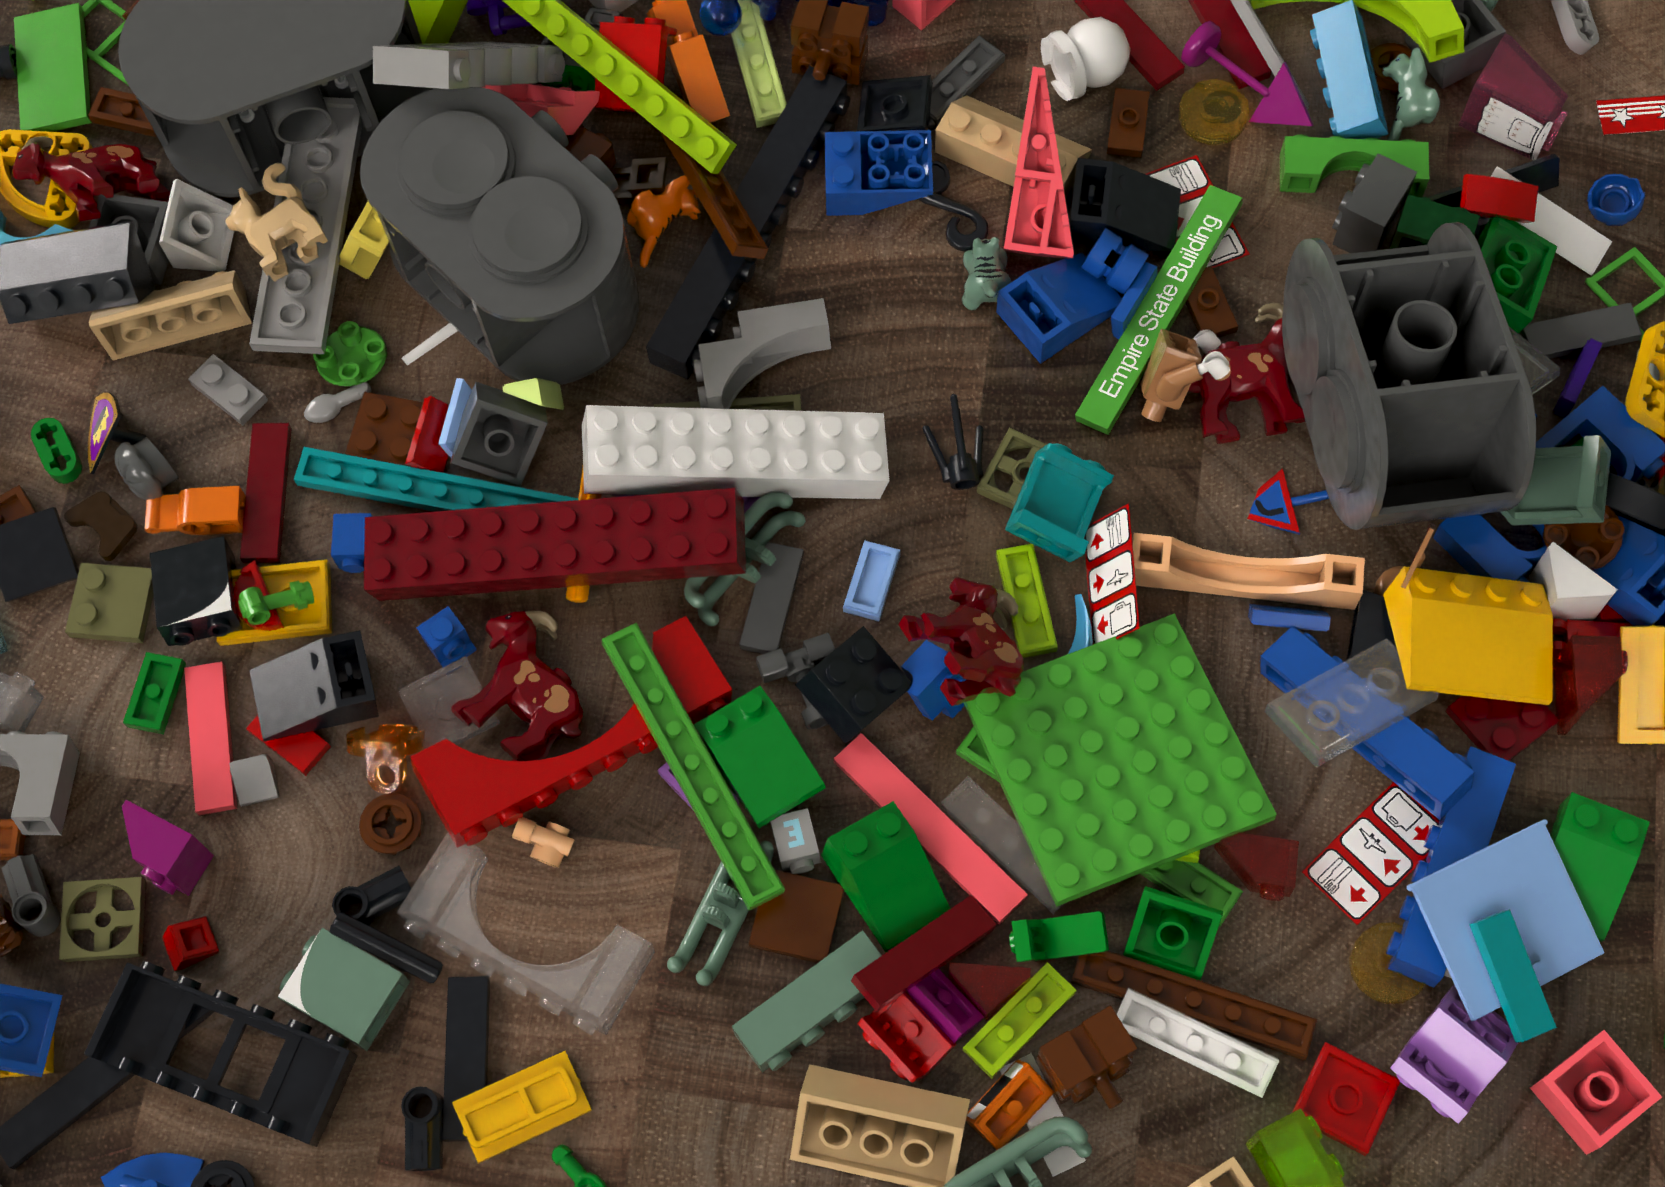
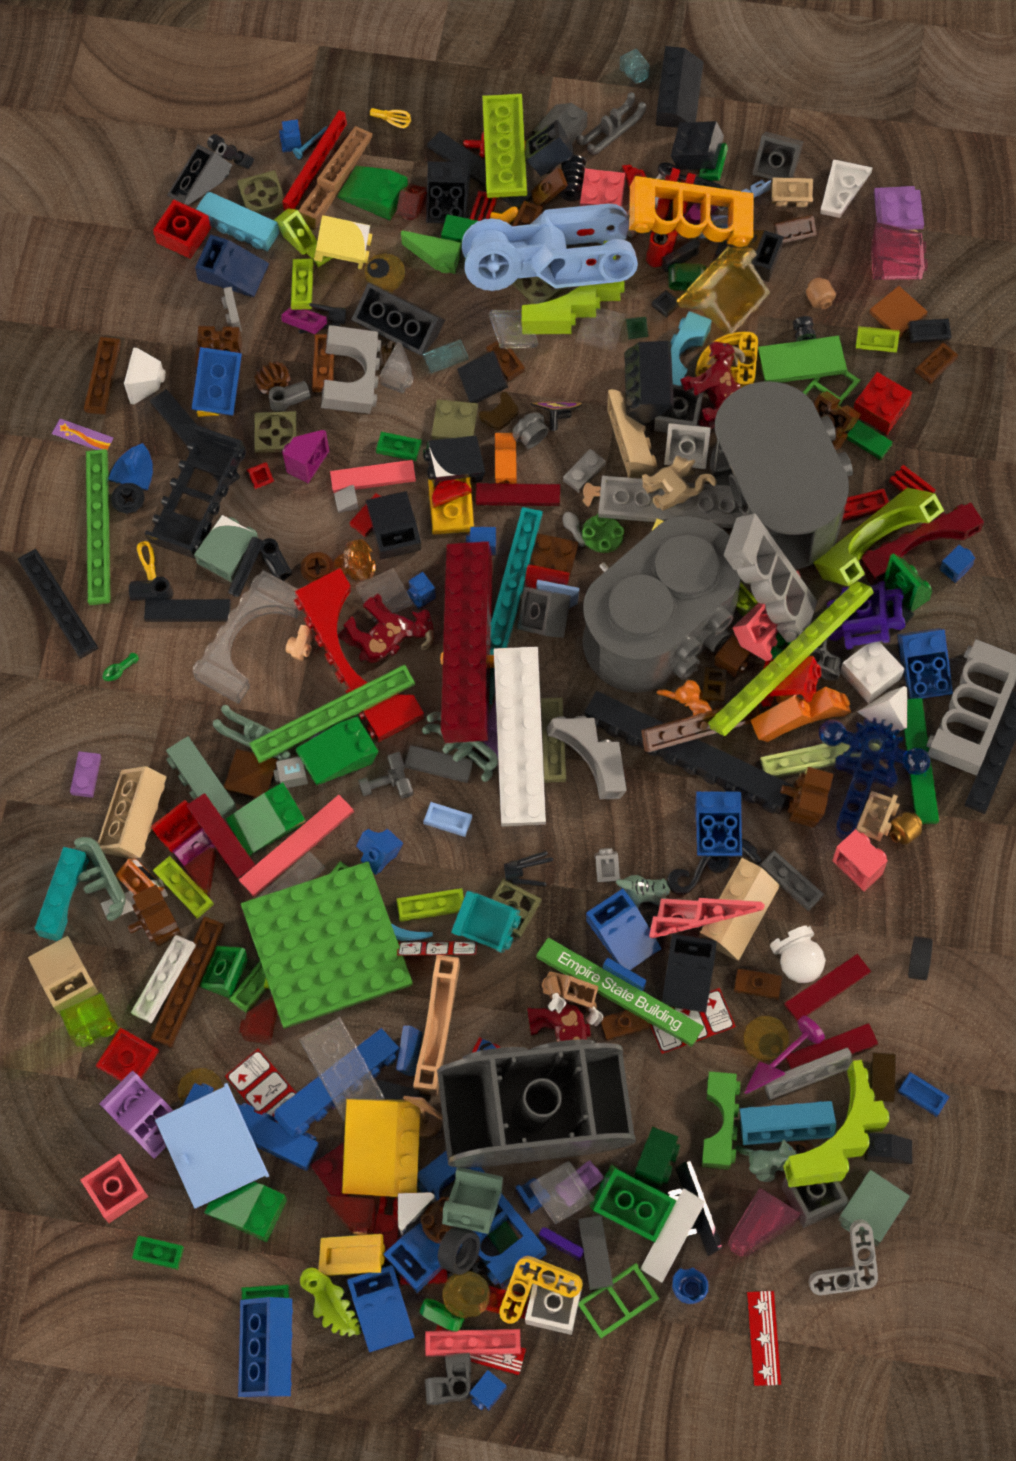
camera: 90 degrees right, 0 degrees up
(49, 454) = (548, 385): green beam -> none
(256, 606) = (441, 489): bright green bar -> none
(268, 379) = (589, 492): none -> light nougat piece
(375, 1140) = (148, 568): none -> yellow piece
(521, 1106) = (159, 637): yellow piece -> none
(537, 391) = (566, 631): yellowish green slope -> none
(854, 684) = (375, 801): black brick -> none
(895, 104) = (766, 838): black tile -> none
(946, 330) = (607, 865): none -> light grey bracket
(977, 643) = (393, 865): dark red animal -> none
(1059, 937) = (227, 904): green bracket -> none
(1124, 269) = (648, 962): blue wheel -> none
(1373, 205) = (682, 1122): dark grey brick -> none
(1499, 198) = (680, 1199): red slope -> none
(1512, 976) = (177, 1143): teal tile -> none

